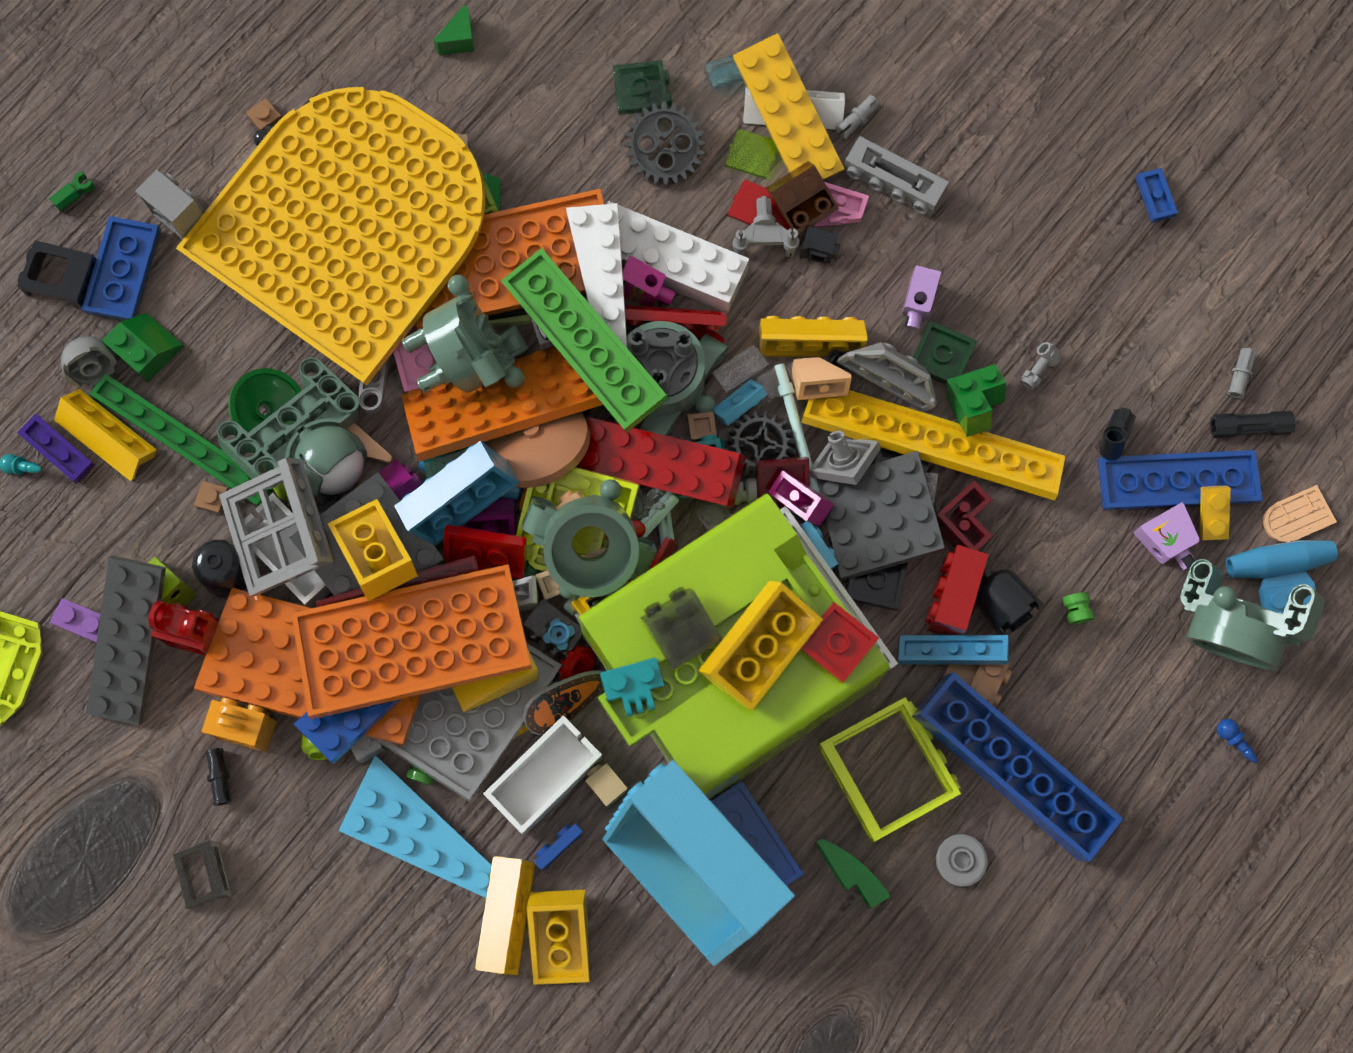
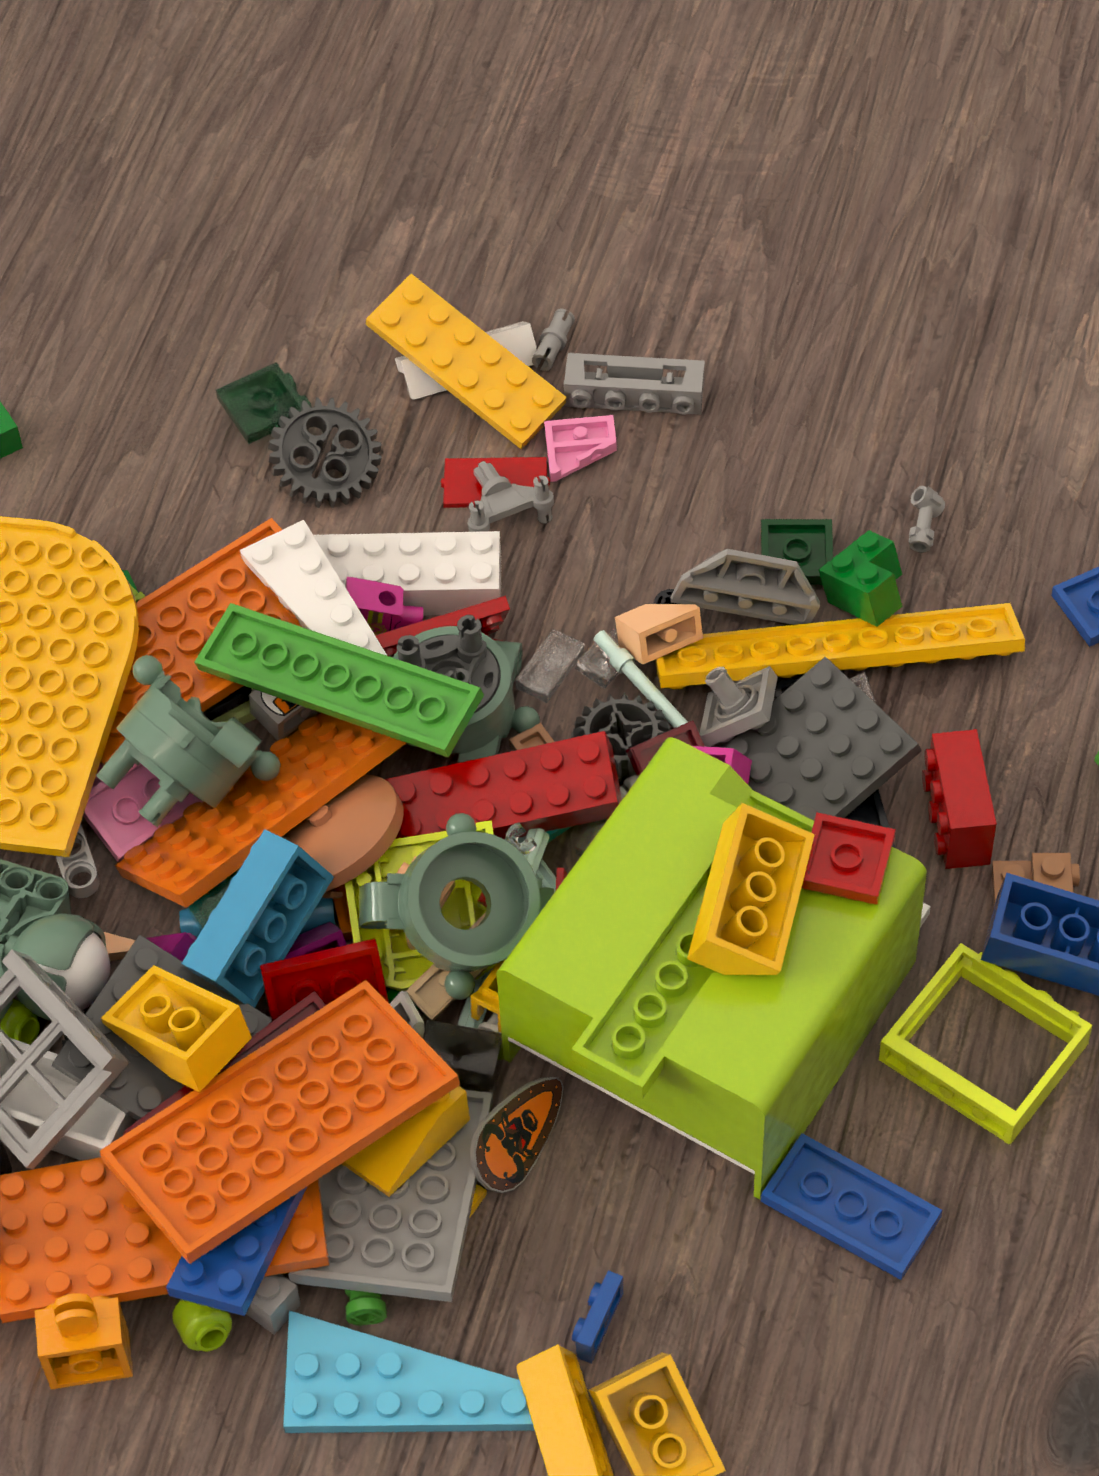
camera: 20 degrees left, 20 degrees down
(218, 777) = (80, 1430): black pin -> none
(543, 775) = (534, 1234): white piece -> none
(555, 627) = (471, 1038): dark azure plate -> none
(586, 662) = (510, 1067): red gear -> none
(606, 784) = (624, 1214): tan brick -> none
(633, 684) = (610, 1013): teal hinge -> none
(680, 627) = (638, 917): clear smoke plate -> none
(694, 862) = (796, 1283): medium azure door -> none
(722, 72) = (361, 351): clear light blue plate -> none
(739, 402) = (569, 700): medium azure plate -> none
(751, 154) = (440, 429): clear neon green piece -> none
(802, 197) = (531, 442): reddish brown slope -> none
(810, 336) = (594, 603): yellow slope -> none
(820, 246) = (580, 491): black window -> none
(853, 873) = (1004, 1183): green slope -> none
(923, 289) = (735, 493): lavender torso -> none
(954, 649) = (989, 865): dark azure plate -> none
(958, 518) = (920, 708): dark red brick -> none
(1006, 600) = (1029, 785): black cylinder -> none
(1116, 434) = (1059, 553): black piece -> none
(1156, 195) = (963, 288): blue plate -> none

